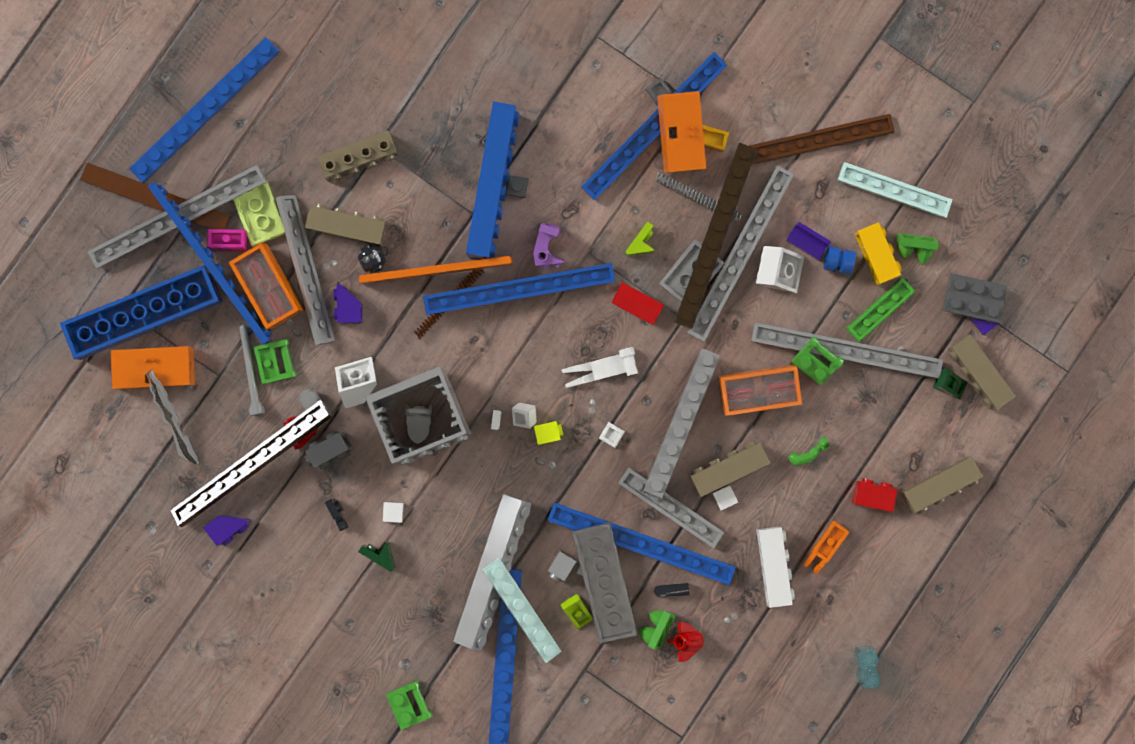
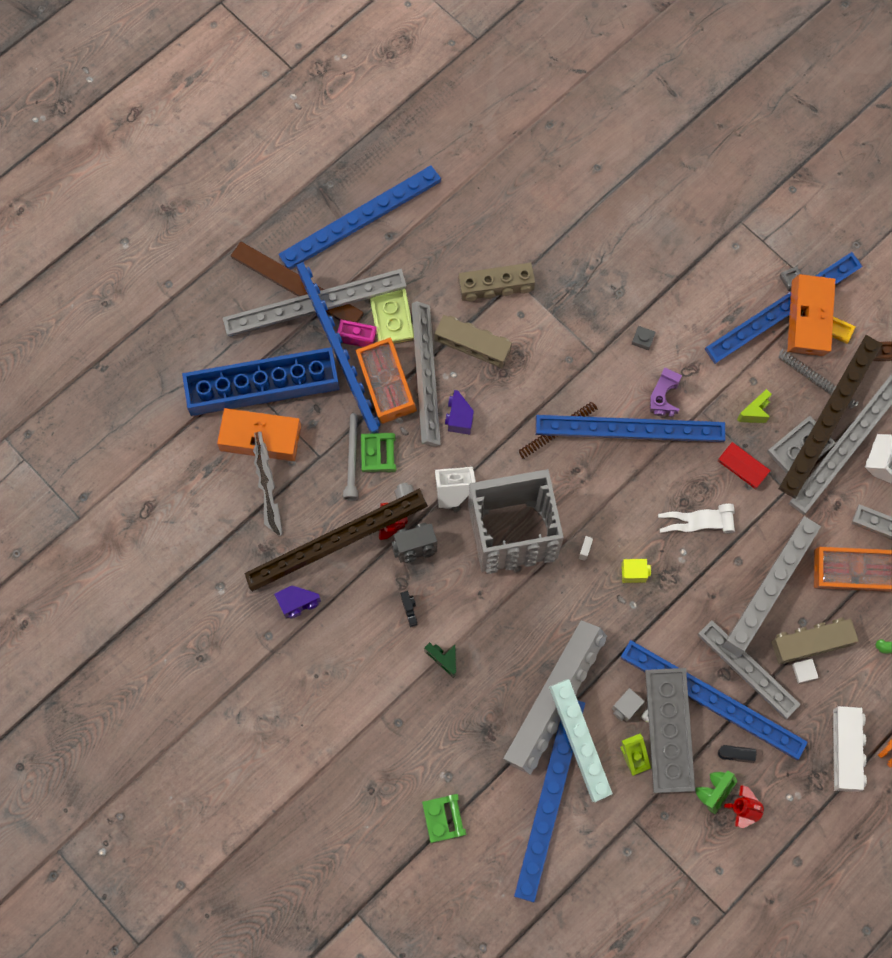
camera: 15 degrees right, 15 degrees down
(371, 259) = (491, 375): black head -> none
(393, 512) = (465, 619): white tile -> none
(418, 422) = (508, 530): white piece -> none
(436, 270) = (553, 395): orange tile -> none
(491, 181) = (622, 327): blue brick -> none
(524, 415) = (613, 550): white slope -> none
(611, 434) = (698, 586): white tile -> none

